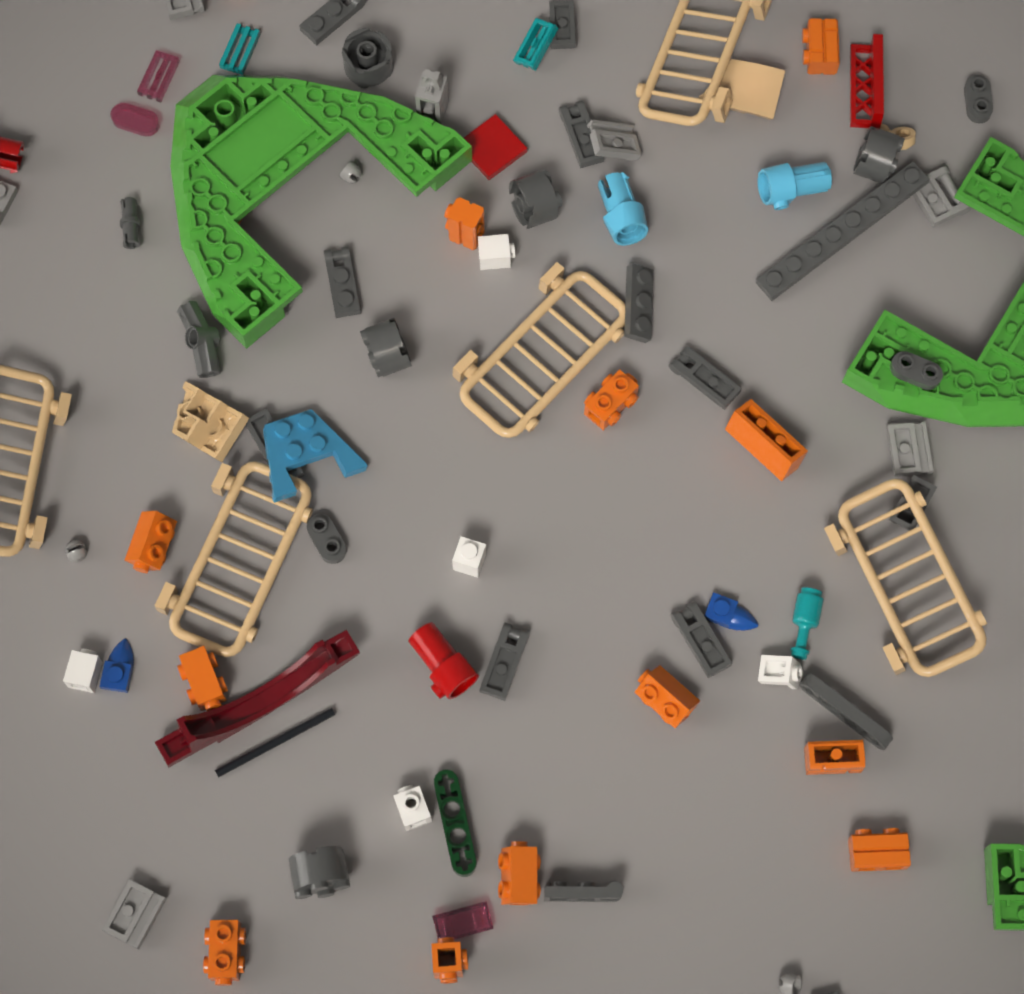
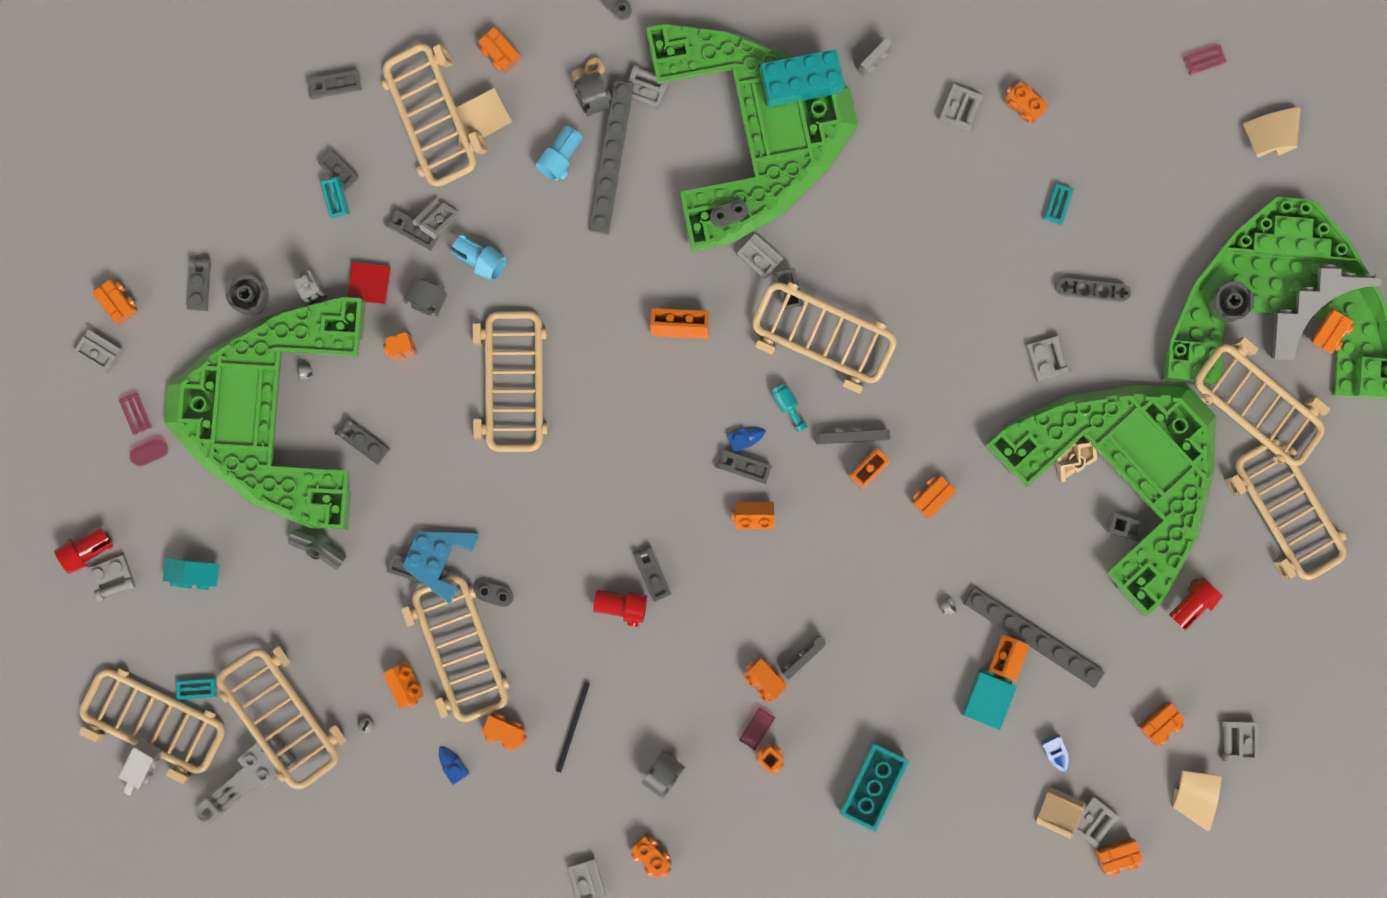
camera: 45 degrees left, 15 degrees up
(58, 249) = (188, 573): none -> teal brick
(83, 670) = (436, 785): white brick -> none
(129, 223) = (209, 516): dark grey pin -> none
(207, 422) = (367, 590): tan slope -> none
(222, 722) = (544, 715): dark red slope -> none
(254, 34) = (159, 339): teal tile -> none
(386, 348) = (426, 459): dark grey brick -> none
(412, 807) = (676, 695): white brick -> none
(453, 823) = (707, 679): dark green beam -> none
(469, 556) = (581, 535): white brick -> none
(495, 251) = (431, 346): white brick -> none
(607, 404) = (575, 369): orange brick -> none
(638, 303) = (538, 304): dark grey plate -> none
(705, 378) = (614, 315): dark grey plate -> none
(780, 671) = (800, 446): white bracket -> none
(876, 82) = (549, 45): red fence -> none

